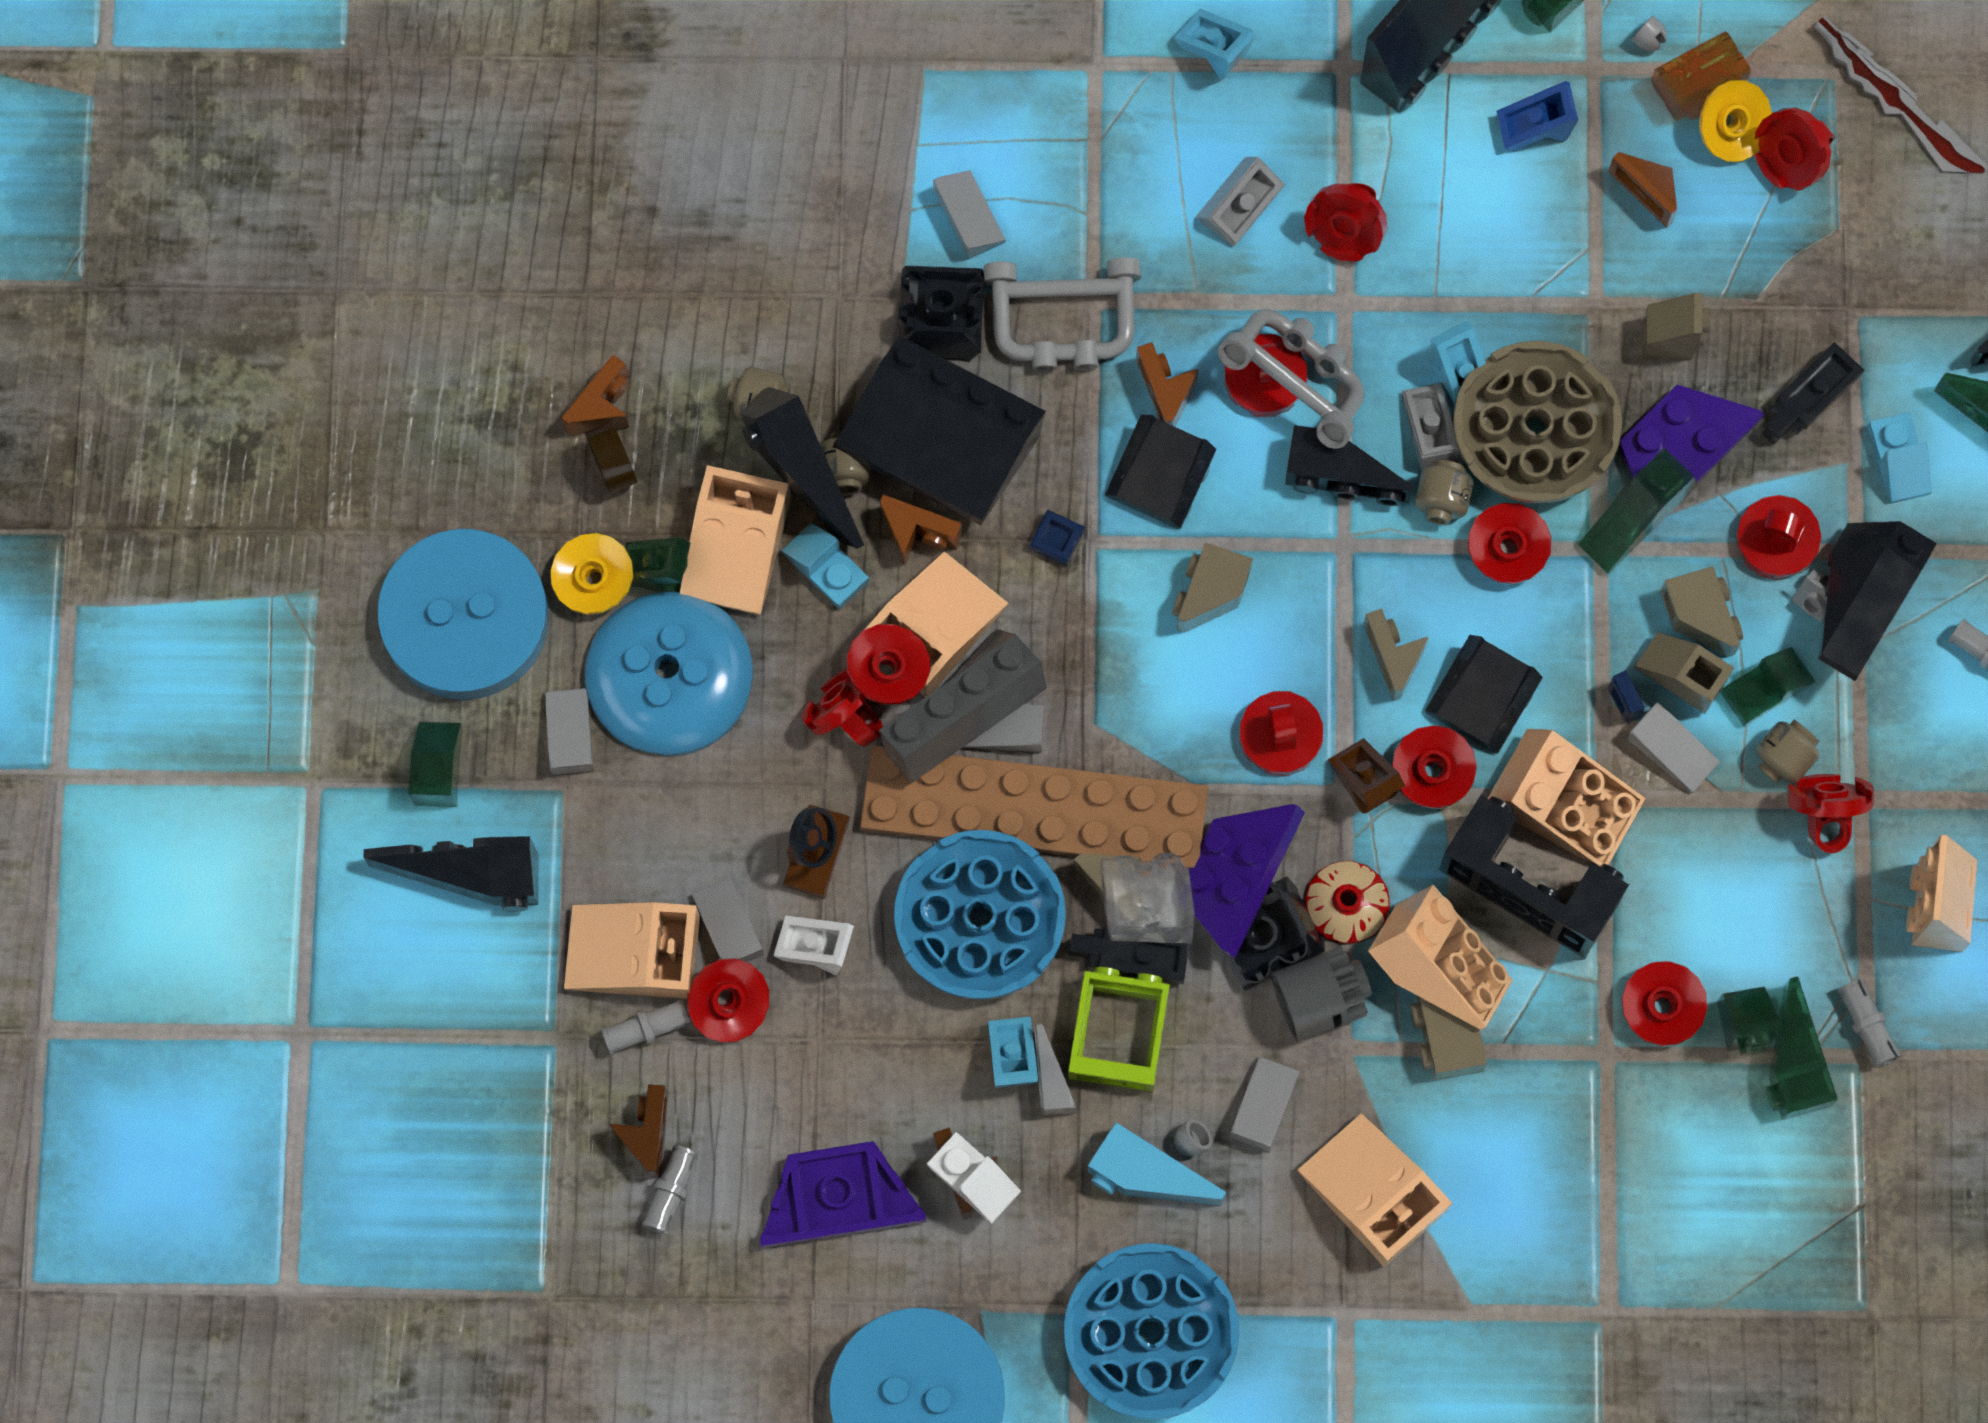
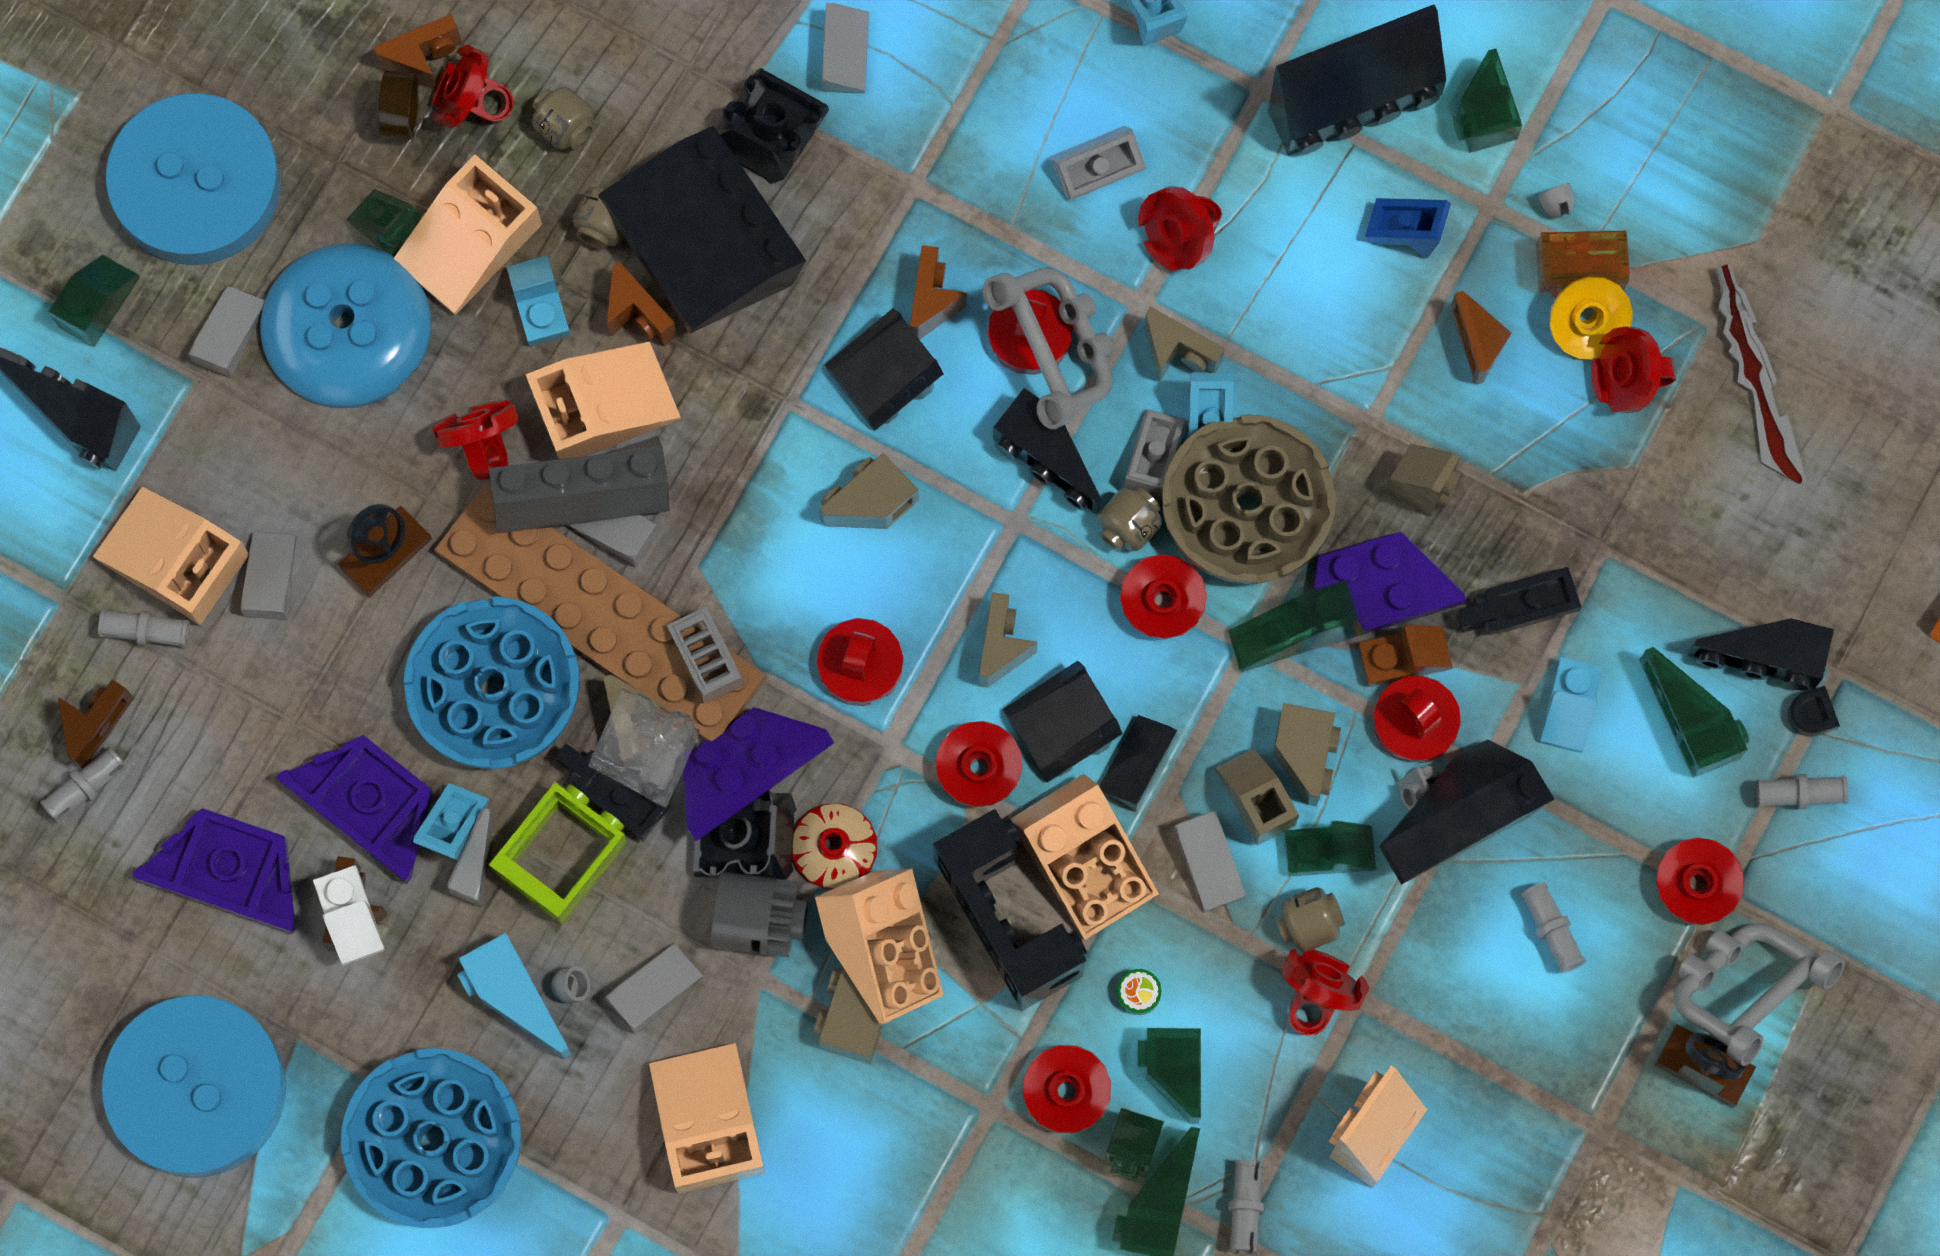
camera: 25 degrees right, 0 degrees up
(579, 560) = (321, 184): yellow dish -> none
(658, 414) = (463, 88): none -> red tile
(742, 1011) = (224, 662): red dish -> none
(787, 442) = (551, 165): black wedge -> none
(814, 942) = (333, 632): white slope -> none
(889, 646) = (542, 398): red dish -> none
(925, 1073) = (366, 799): none -> dark purple wing
(1045, 354) = (877, 228): light grey bar -> none
(1057, 538) = (758, 381): dark blue tile -> none
(1167, 824) = (716, 686): none -> light grey slope
(1366, 775) = (913, 739): reddish brown slope -> none
(1388, 319) = (1172, 338): none -> dark tan slope
(1566, 694) = (1138, 761): none -> black slope
(1626, 697) = (1190, 791): dark blue tile -> none
(1676, 889) = (1139, 992): none -> tile
(1737, 488) = (1413, 652): none -> dark orange slope
(1745, 938) = (1174, 1067): none -> clear green slope

